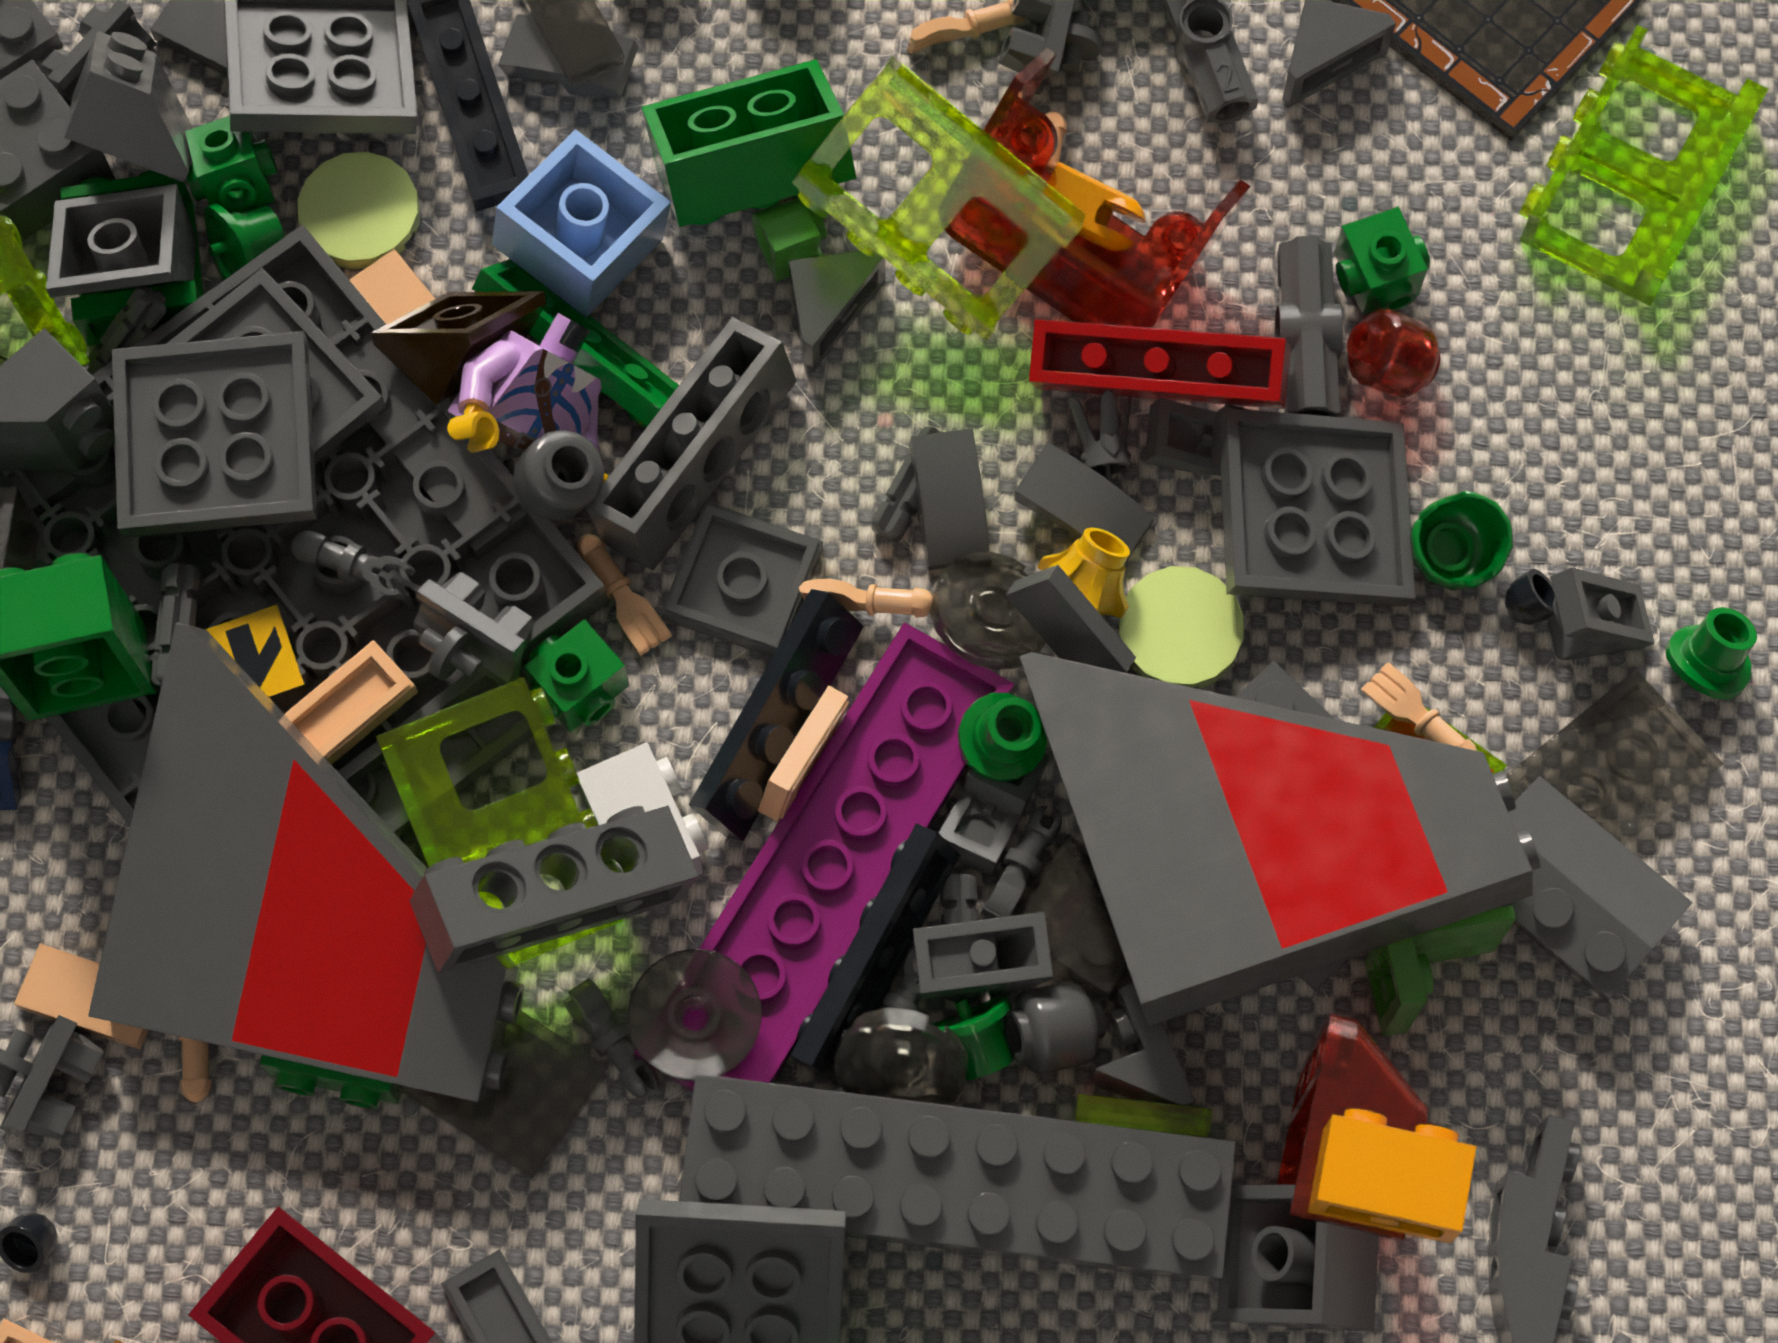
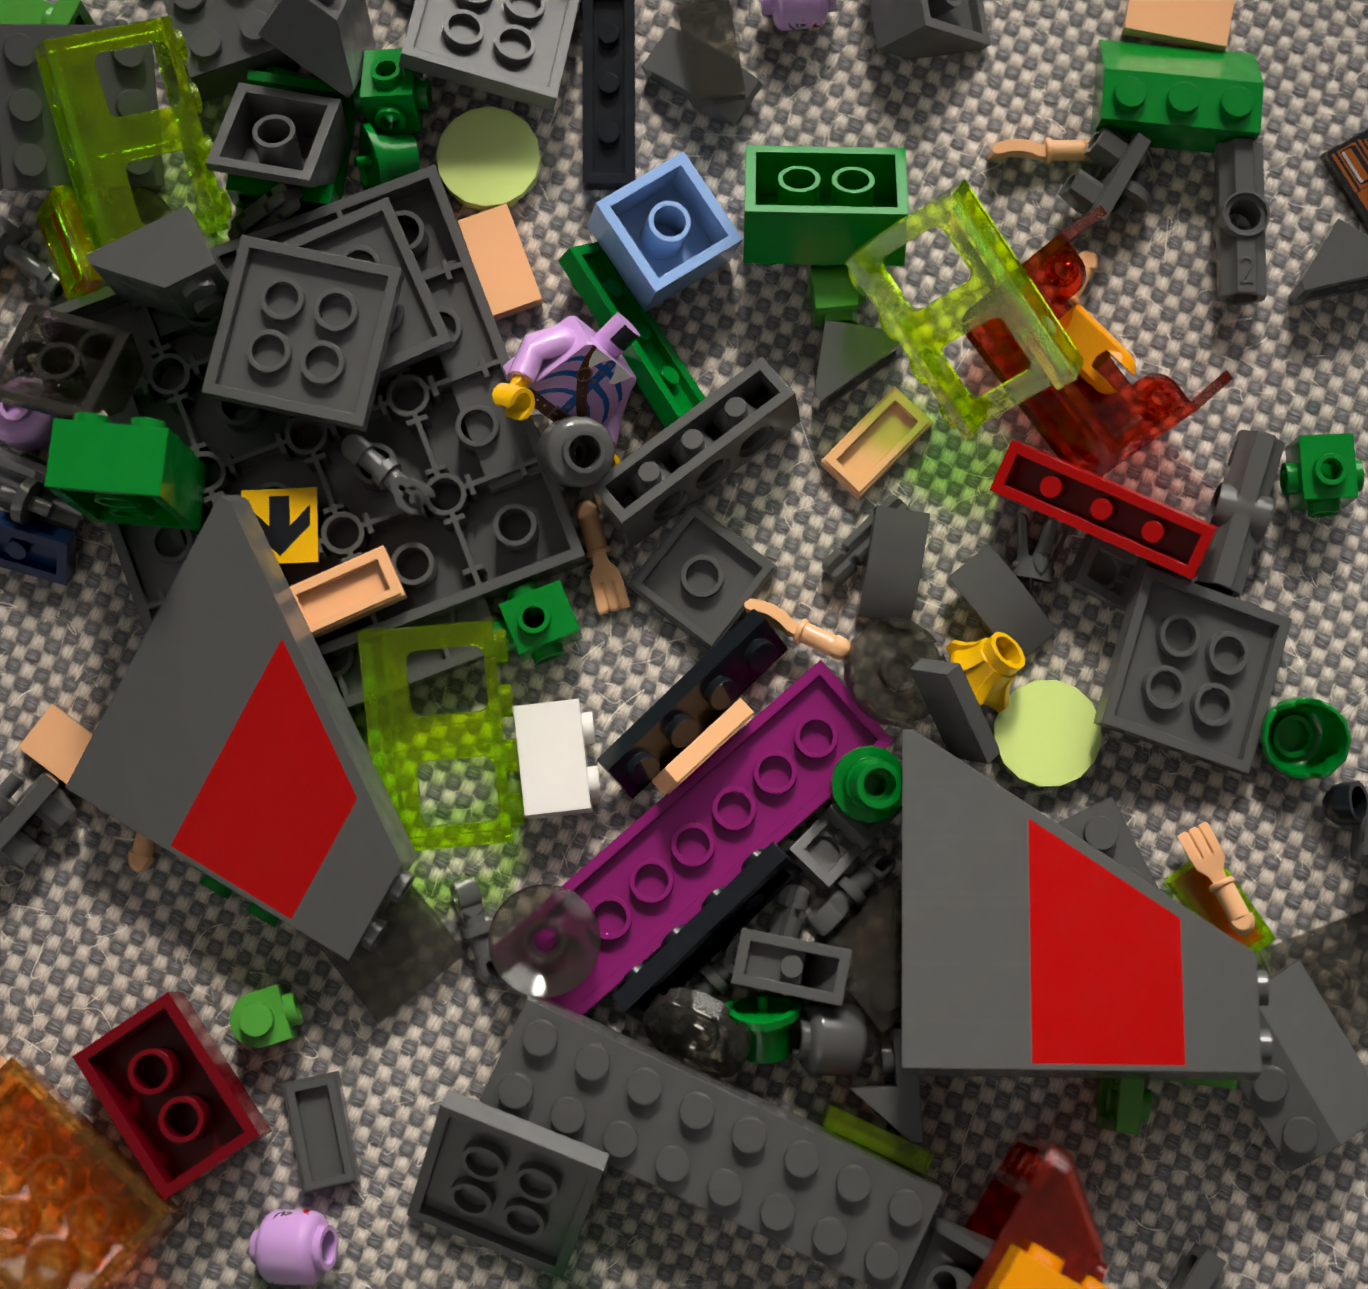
camera: 20 degrees right, 10 degrees up
(178, 585) = (232, 469): dark grey axle -> none
(399, 1213) = (266, 1017): none -> bright green plate
(448, 331) = (529, 299): dark brown slope -> none
(465, 636) = (455, 570): dark grey hips -> none
(467, 930) = (373, 827): dark grey brick -> none
(888, 380) = (876, 443): none -> tile
(1393, 353) = (1303, 557): clear red head -> none

